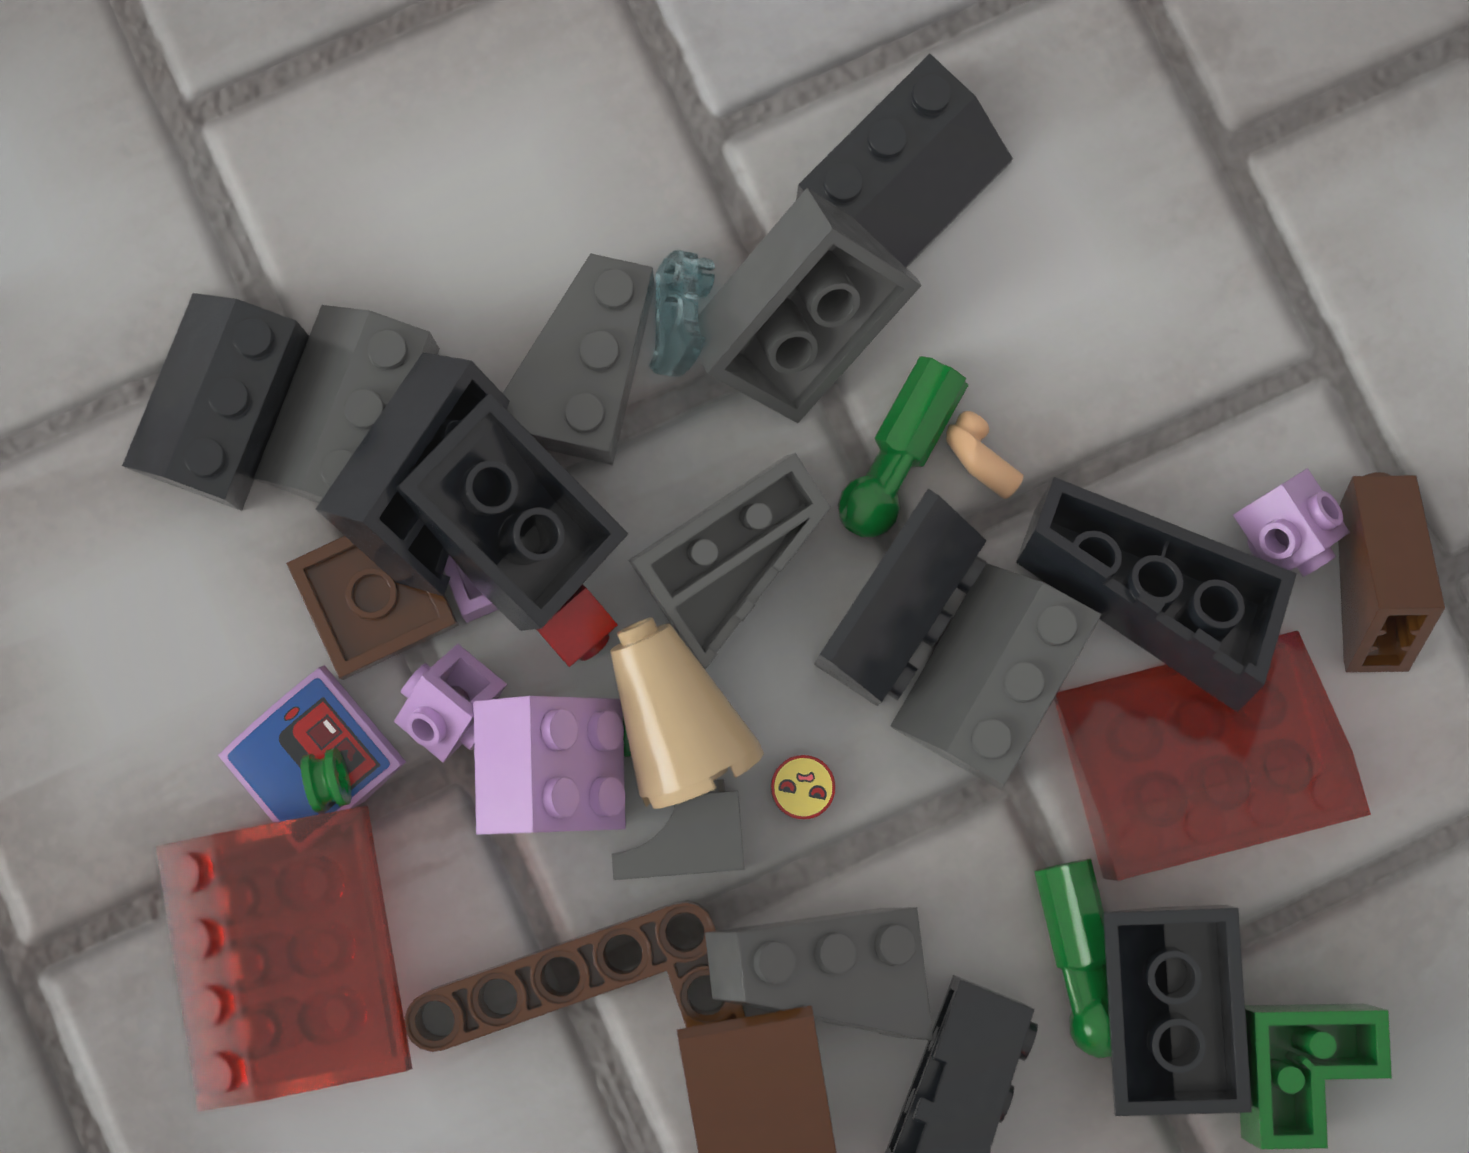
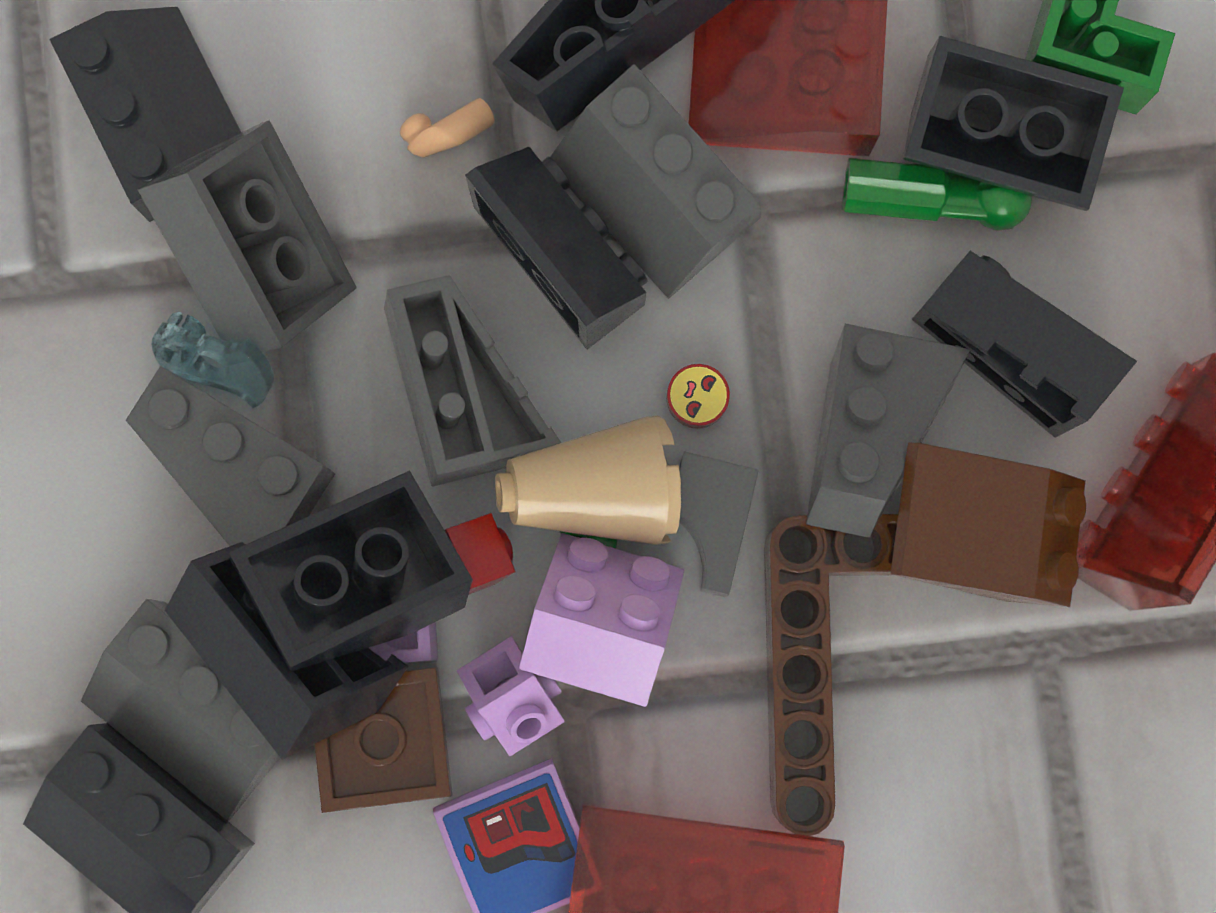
camera: 70 degrees left, 0 degrees up
(325, 780) = (545, 837): green bush -> none
(905, 441) = (409, 193): green piece -> none

